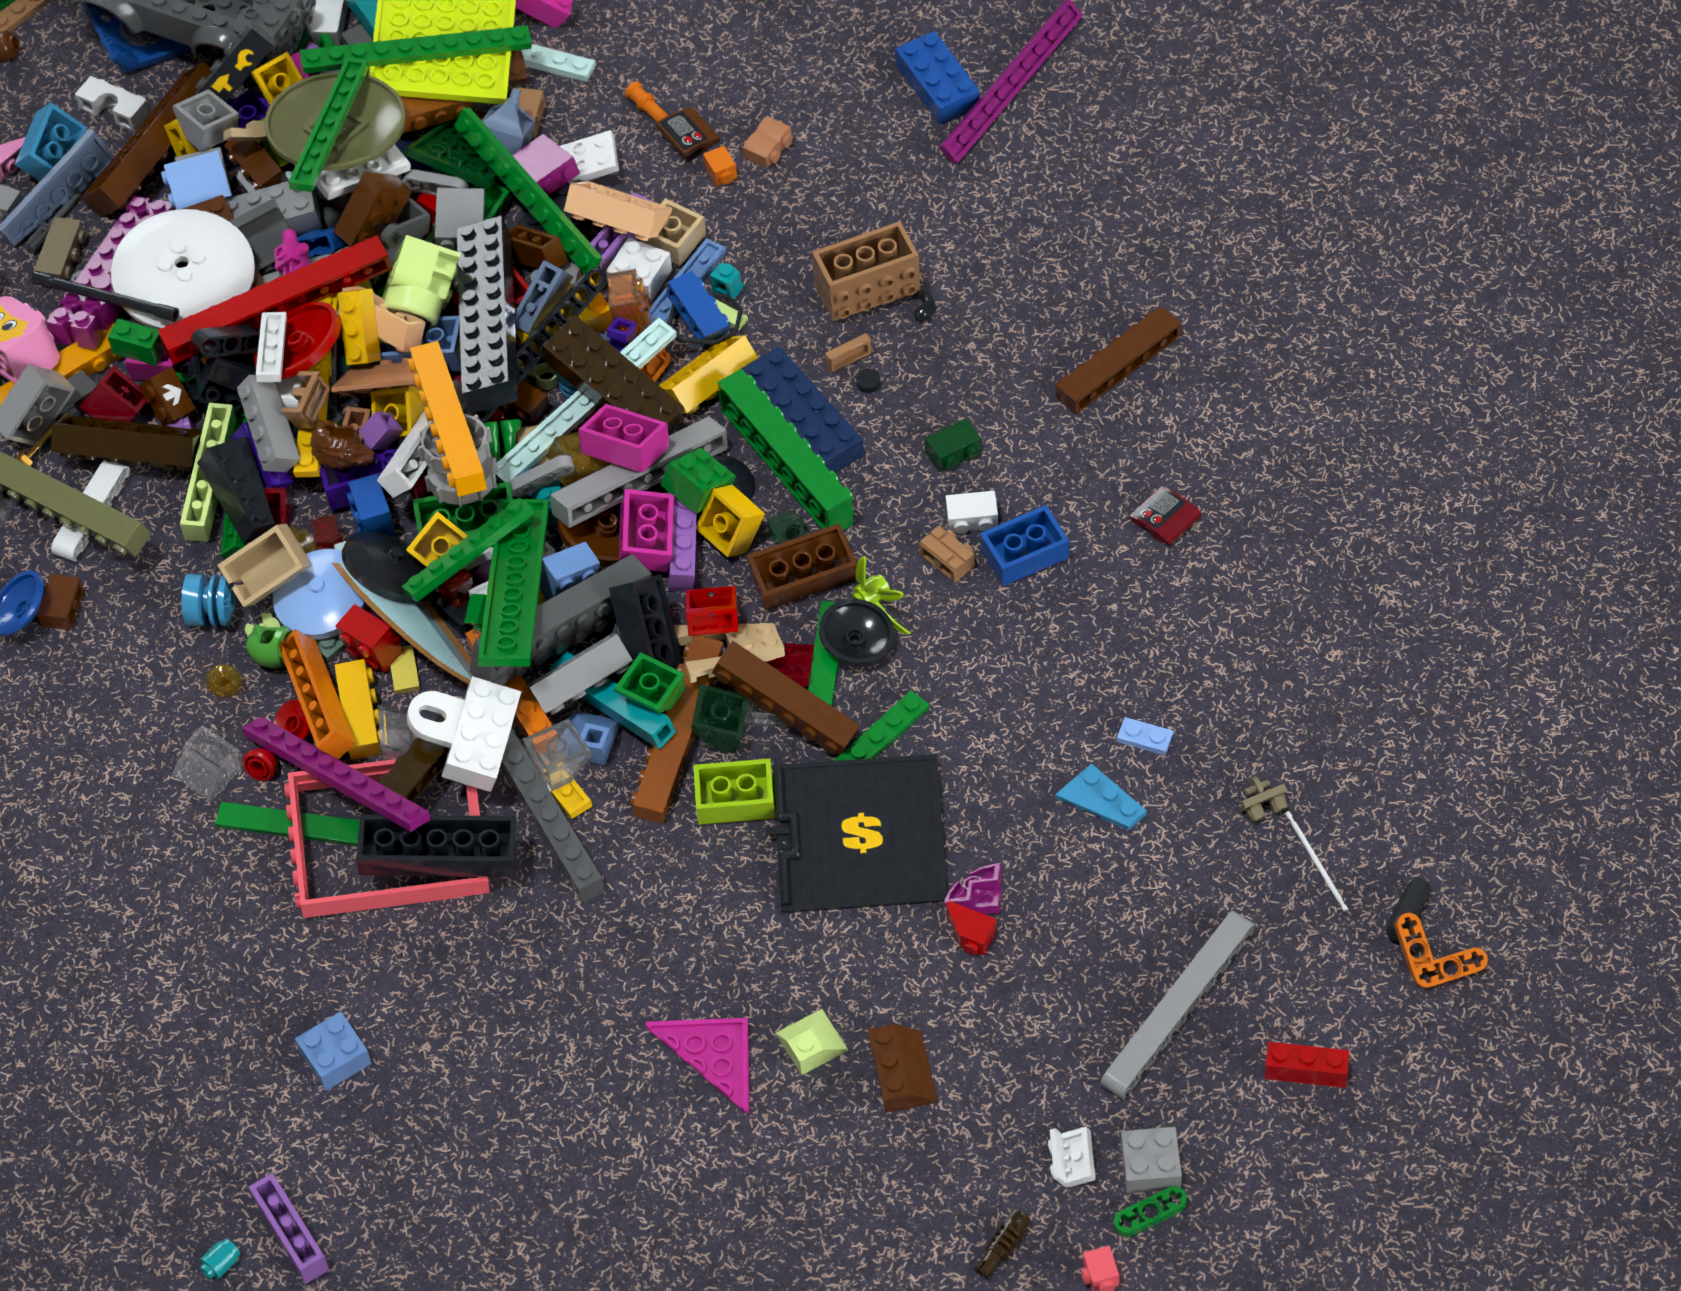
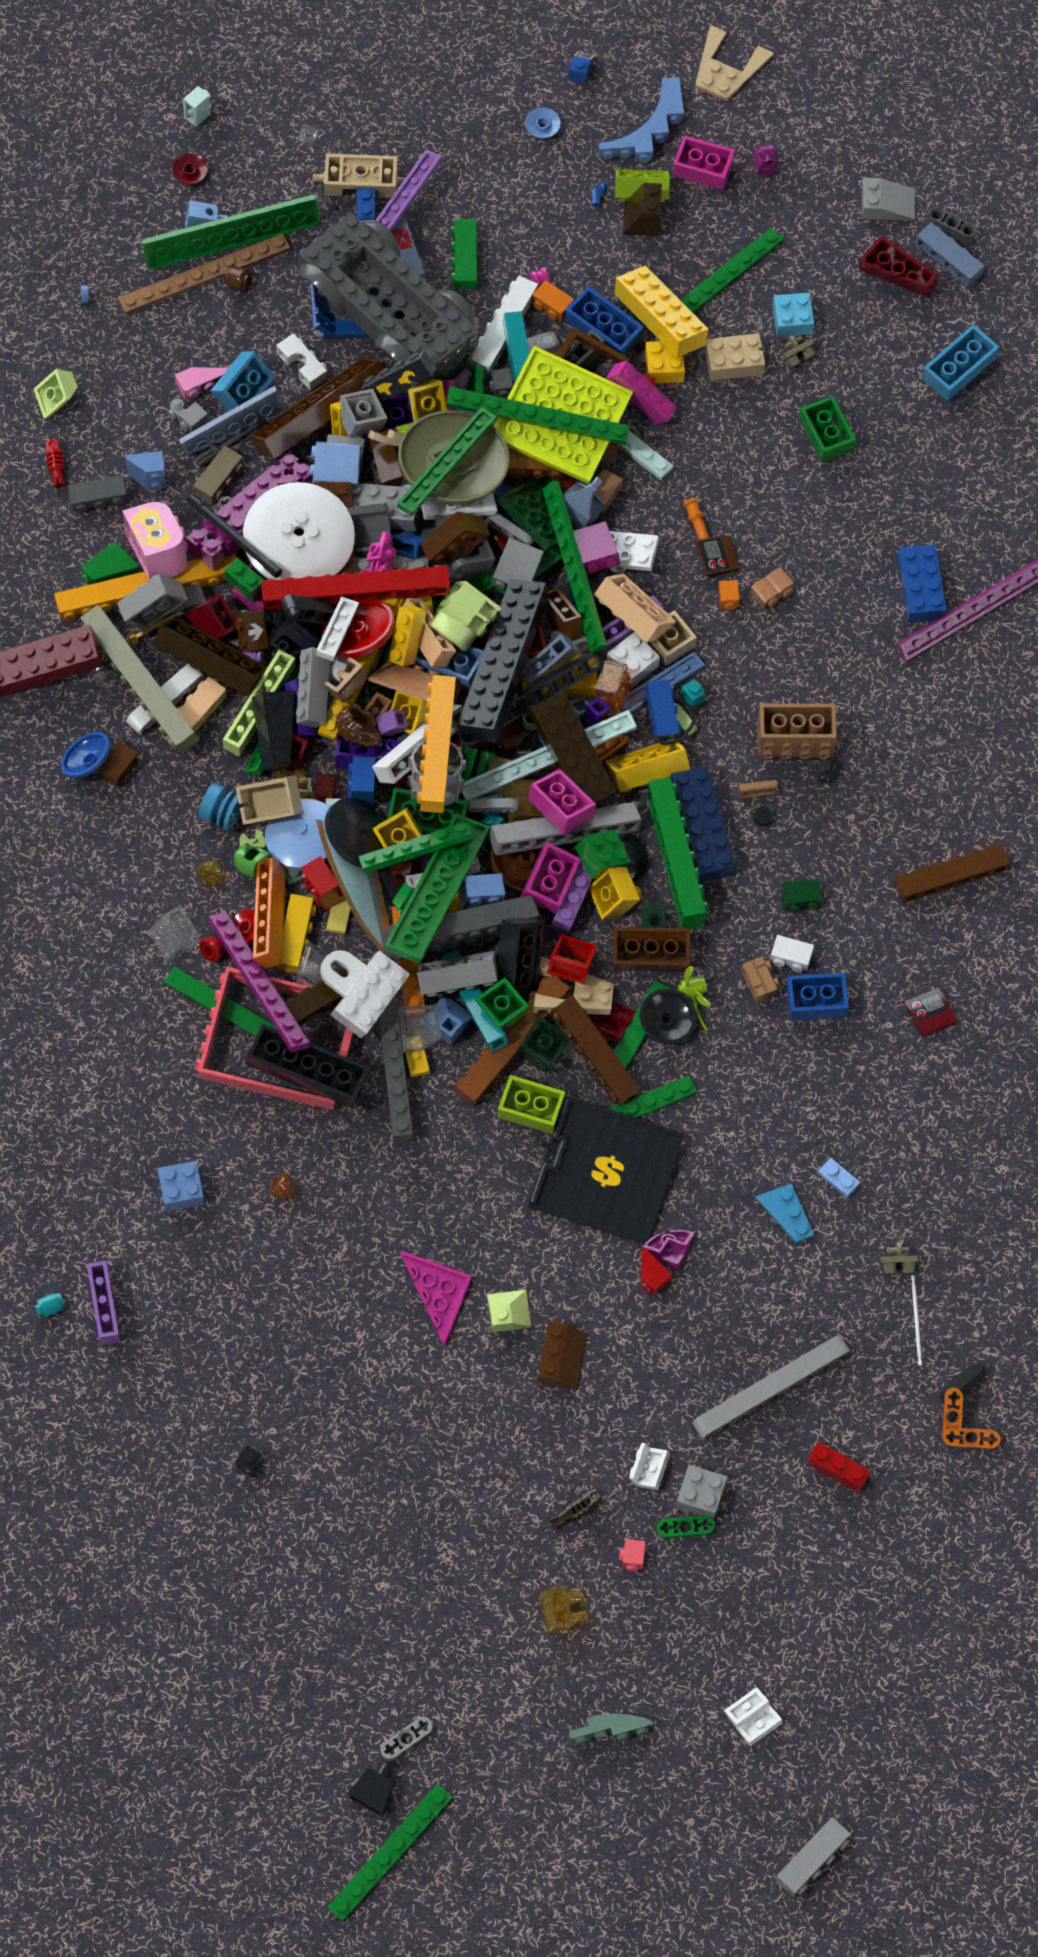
camera: 15 degrees right, 10 degrees up
(138, 499) = (201, 703): none -> light nougat brick
(462, 1003) = (281, 1186): none -> clear orange brick

